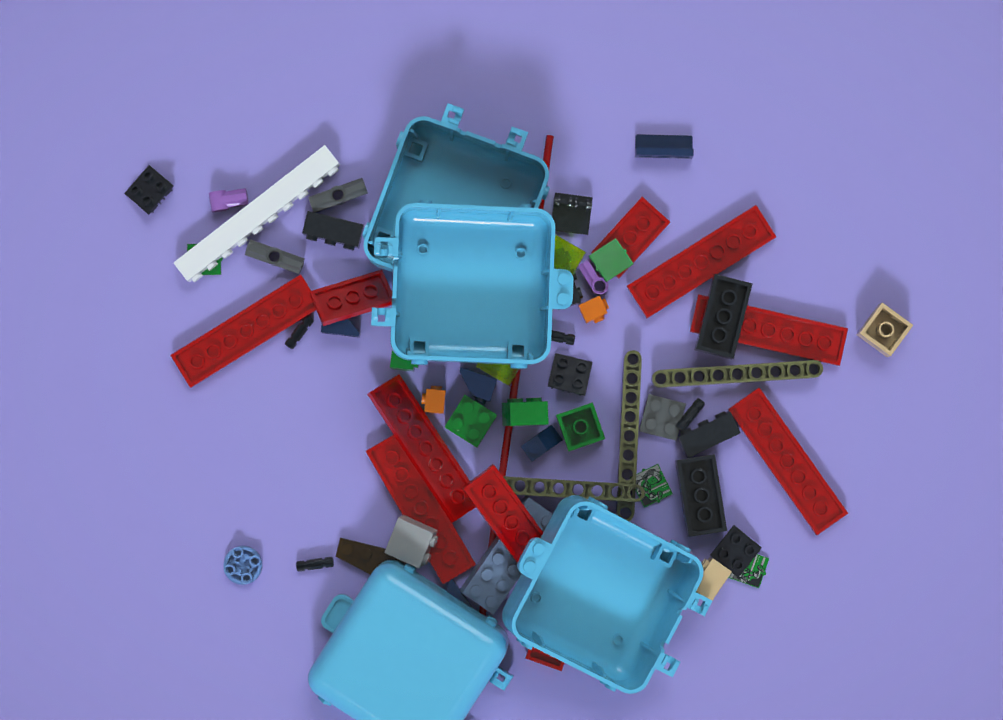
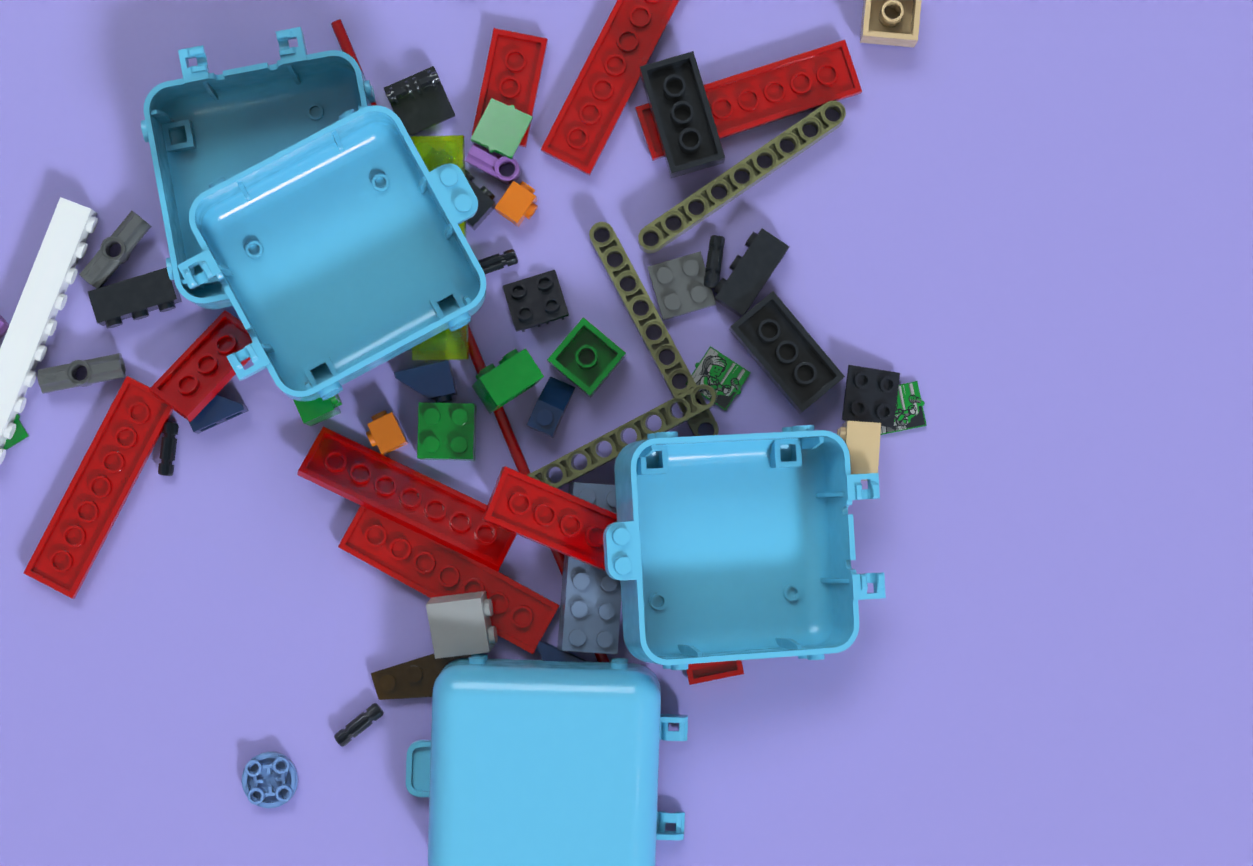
camera: 25 degrees left, 0 degrees up
(787, 461) = (868, 247): red plate -> none

